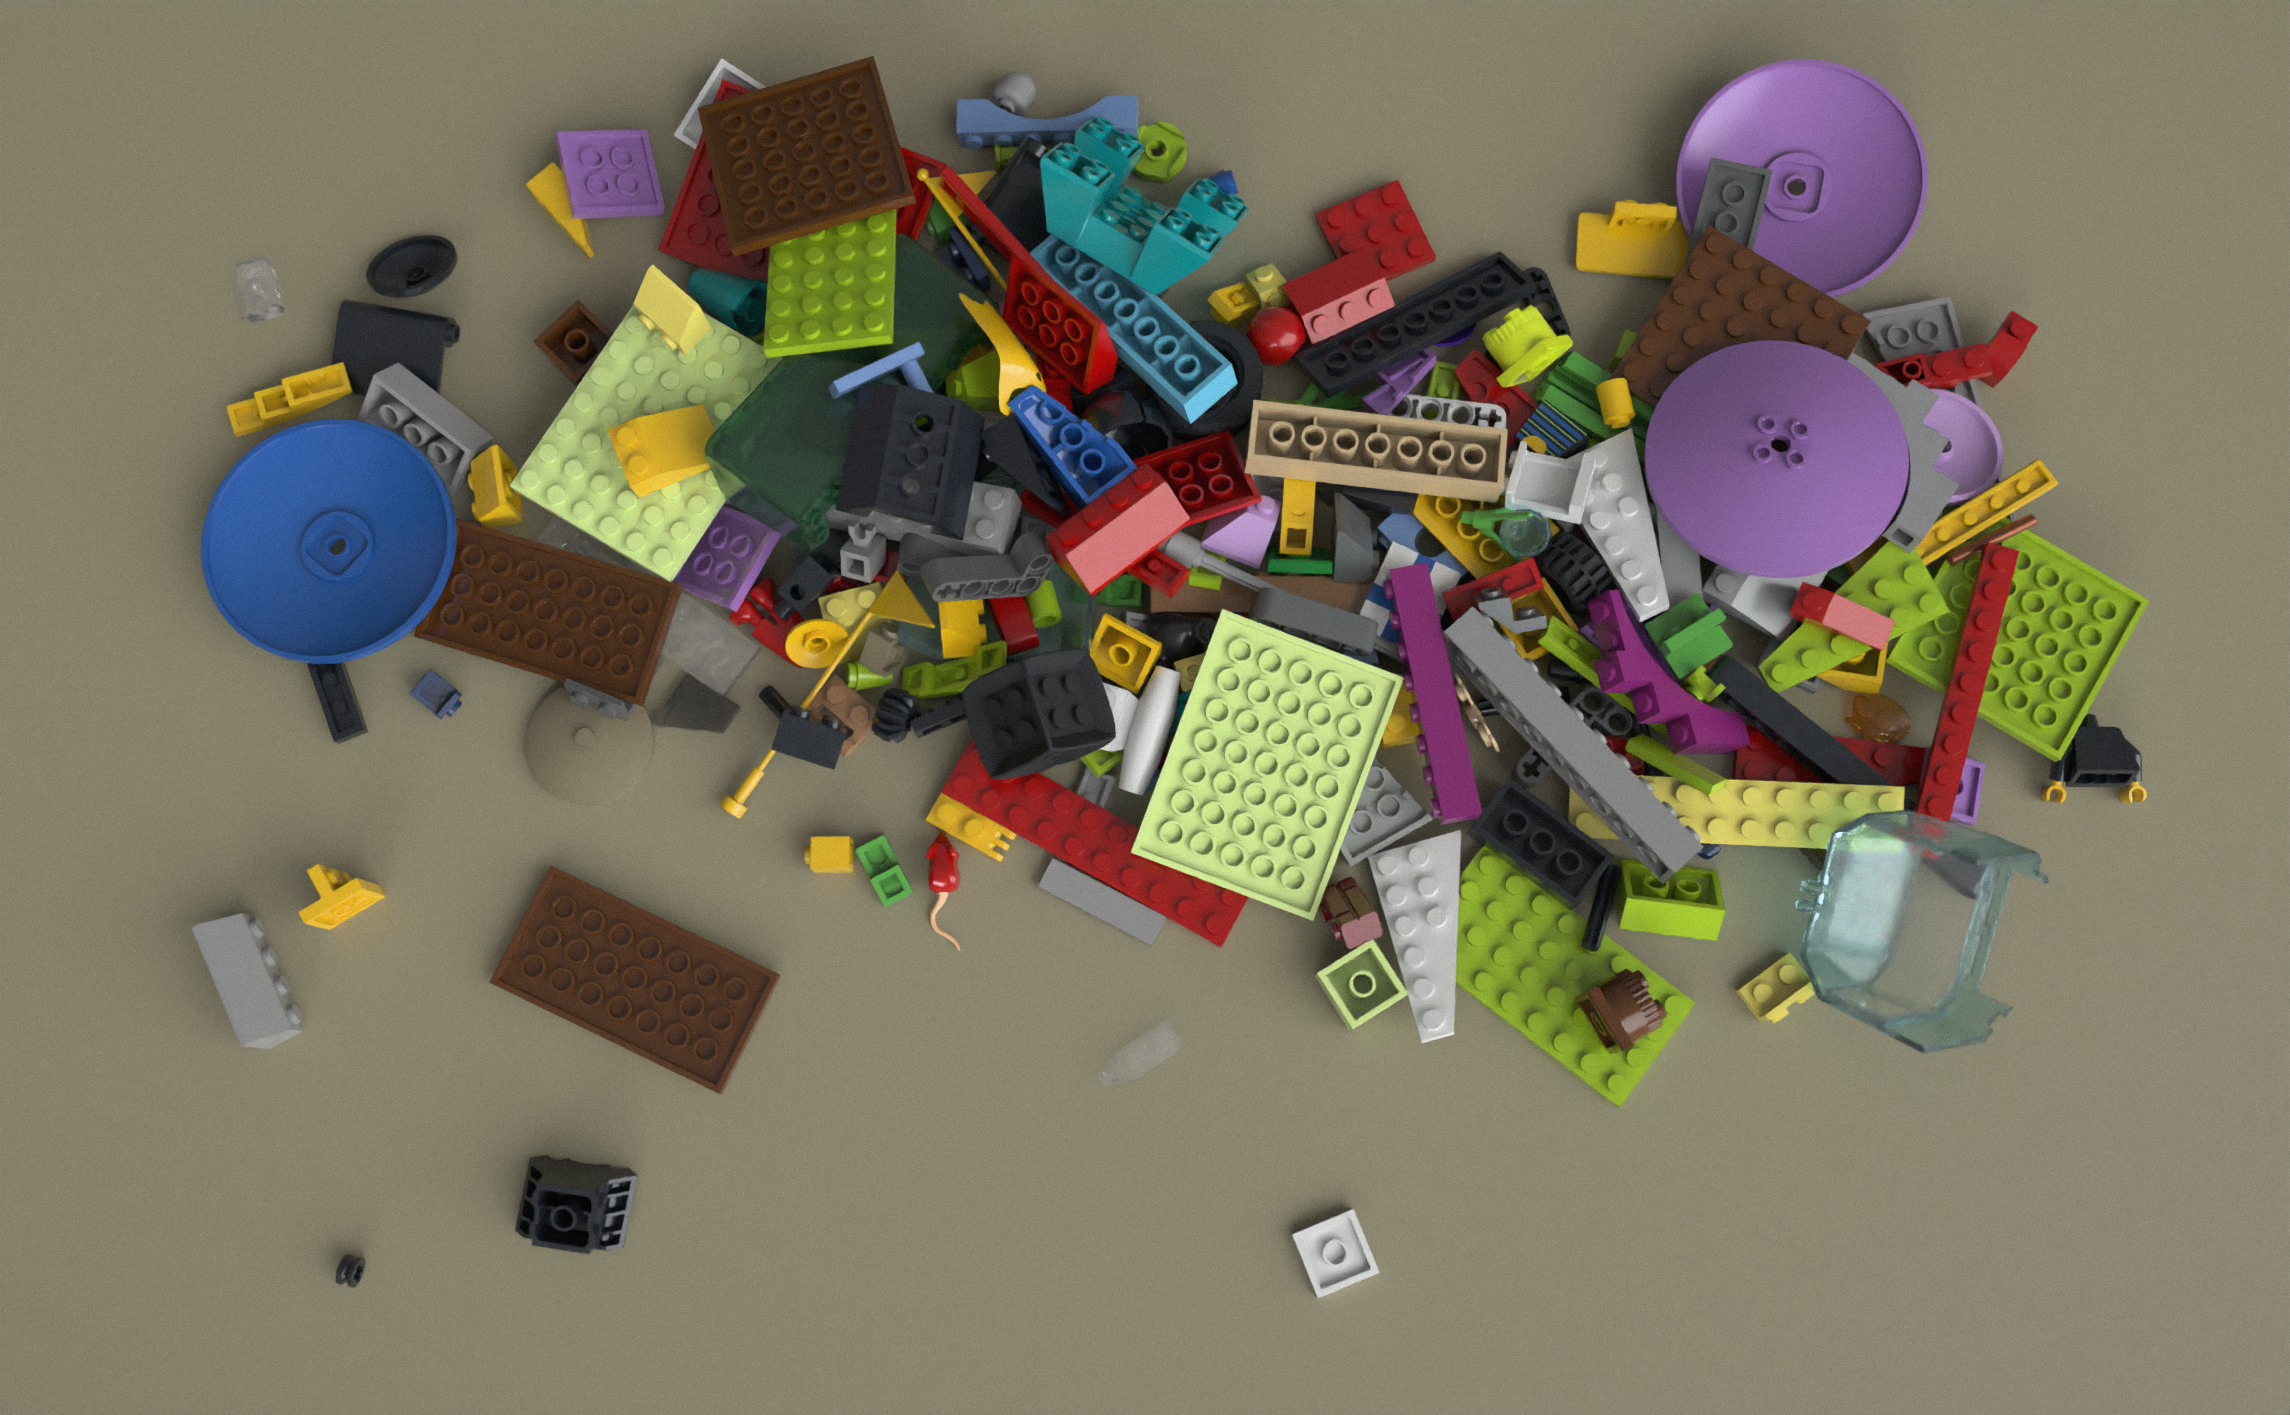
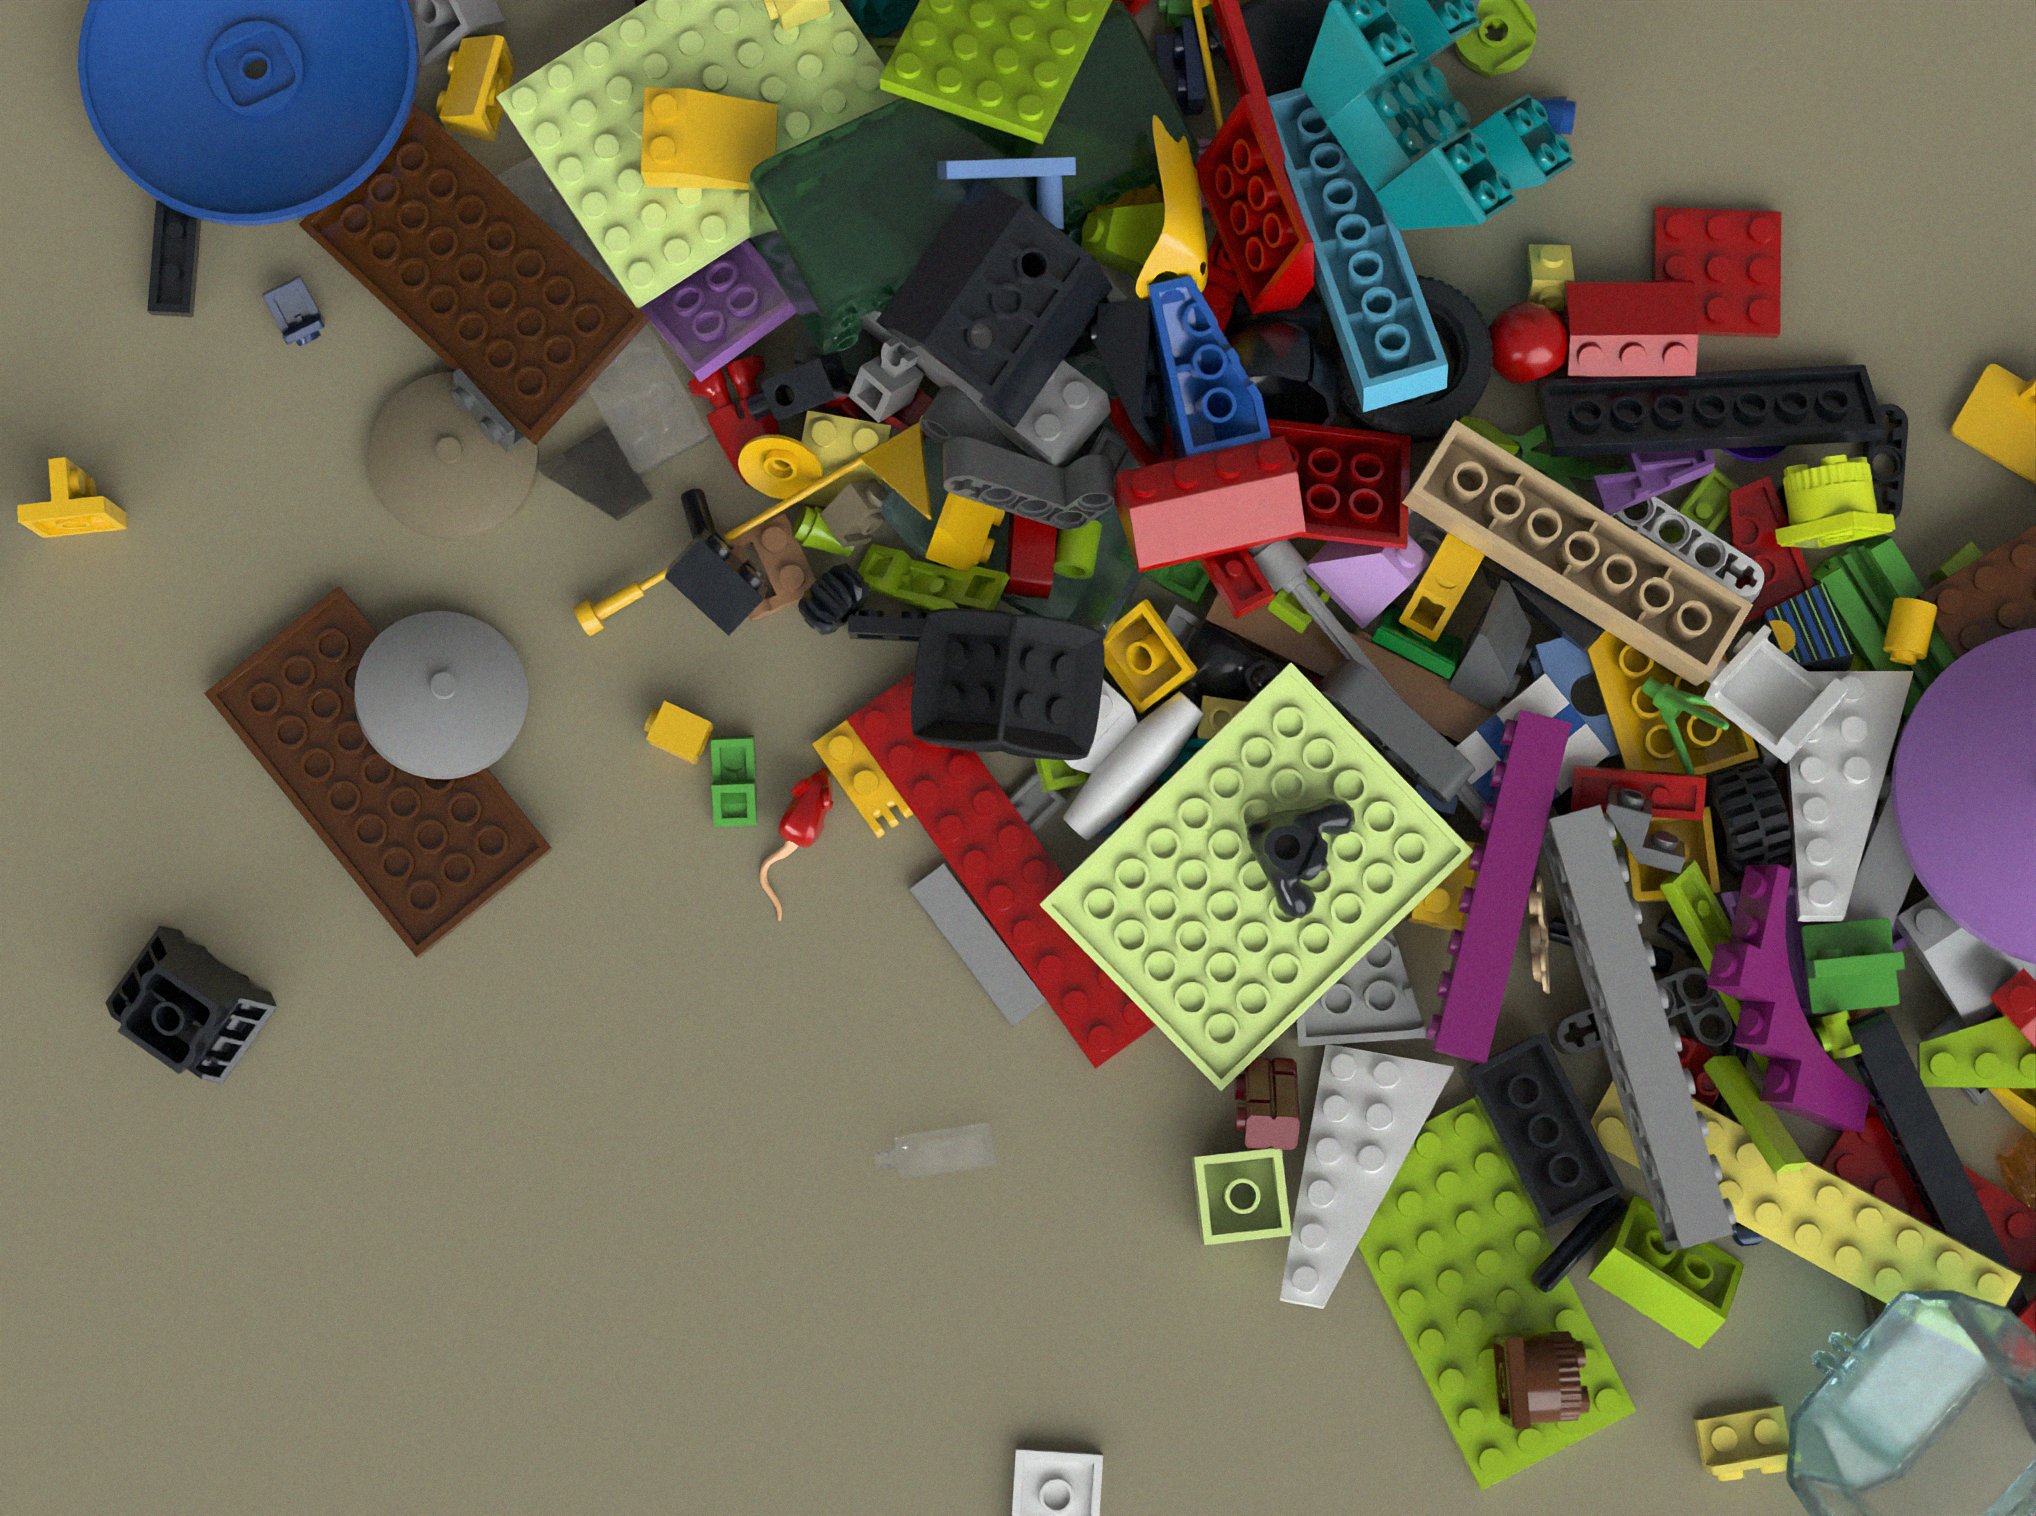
camera: 20 degrees right, 5 degrees up
(654, 906) = (441, 695): none -> light grey dish
(1233, 304) = (1495, 277): yellow slope -> none
(1283, 731) = (1293, 849): none -> black head
(1527, 535) = (1710, 747): clear light blue hair -> none

